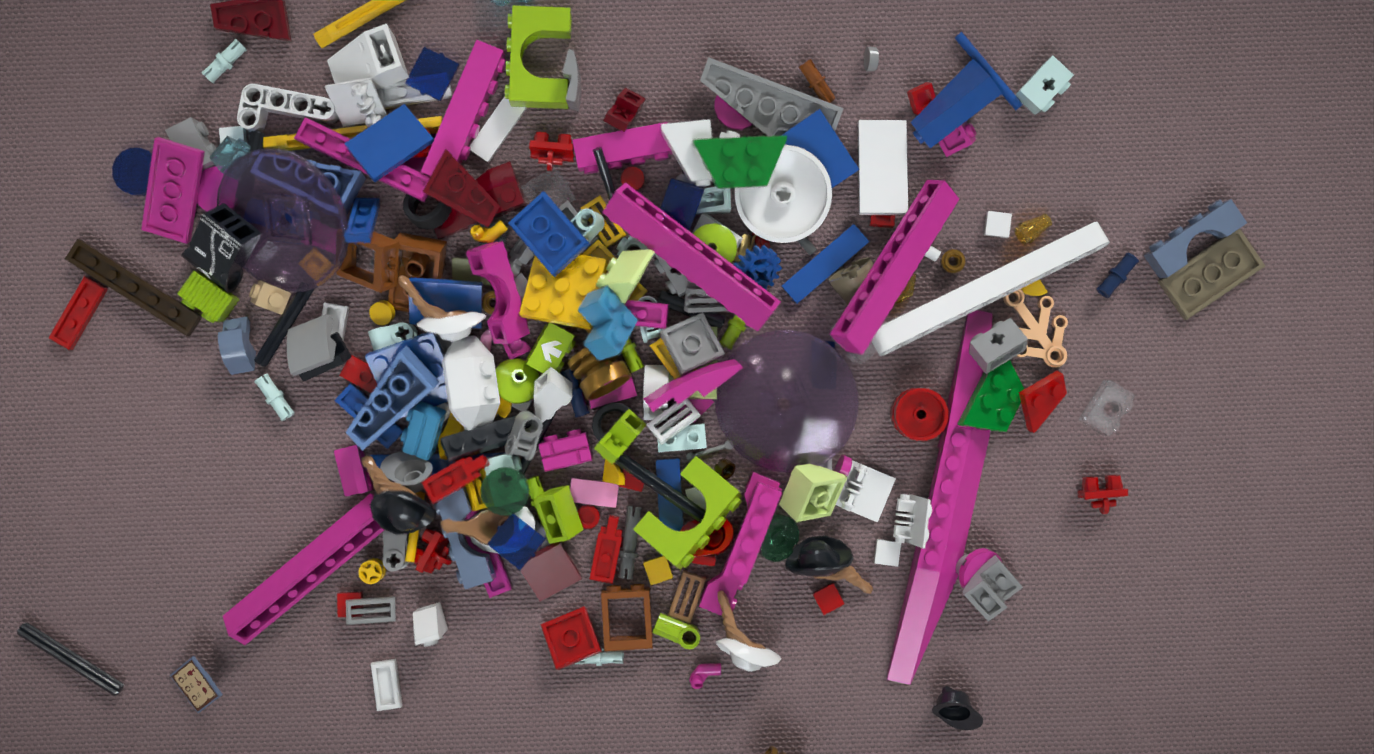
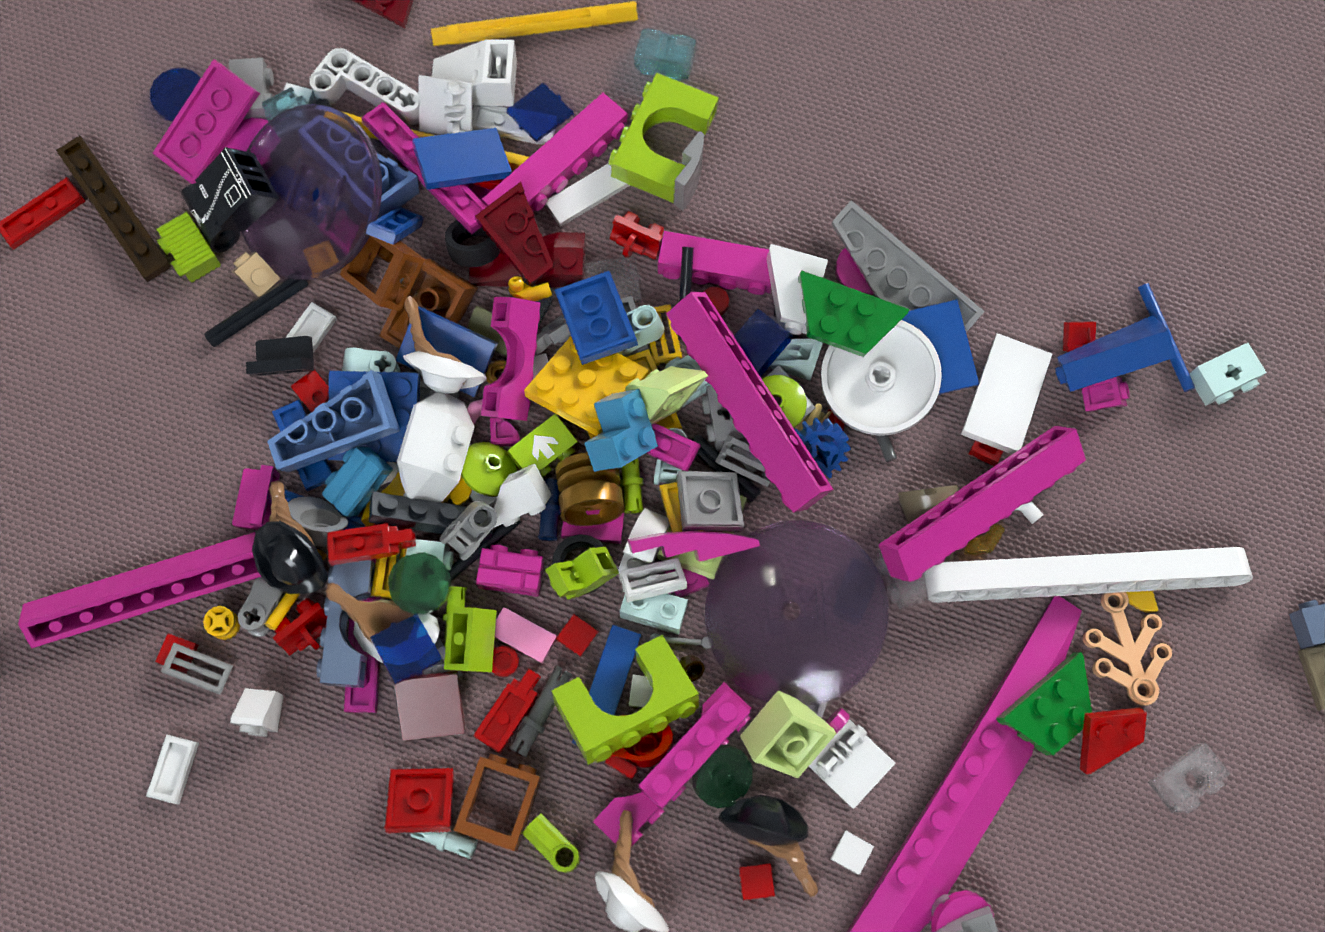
camera: 20 degrees right, 15 degrees down
(224, 61) = (325, 21): light aqua pin -> none
(235, 346) = (191, 310): sand blue brick -> none
(274, 397) = (206, 382): light aqua pin -> none
(310, 345) = (274, 337): light grey slope -> none
(382, 312) = (370, 336): yellow tile -> none
(613, 474) = (555, 619): yellow tile -> none
(624, 109) = (735, 223): dark red slope -> none
(658, 570) = (561, 760): yellow tile -> none
(661, 487) = (603, 653): black axle -> none
(693, 577) = (565, 828): medium nougat tile -> none
(701, 672) = (563, 912): dark pink arm -> none
(732, 333) = (768, 507): lime pin -> none
(817, 81) = (962, 273): dark orange axle -> none
(825, 263) = (900, 477): blue tile -> none
(871, 58) = (1034, 273): light grey tile -> none
(917, 515) = (910, 810): white hinge -> none
(919, 428) = (970, 687): red wheel -> none
(959, 258) = (1060, 525): pearl gold plate -> none
(993, 355) = (1077, 645): light grey brick -> none
(997, 224) = (1121, 510): white tile -> none
(1031, 229) = (1162, 529): clear yellow cone -> none
(1113, 488) = (1166, 884): red hips -> none
(1117, 275) = (1250, 623): dark blue pin -> none

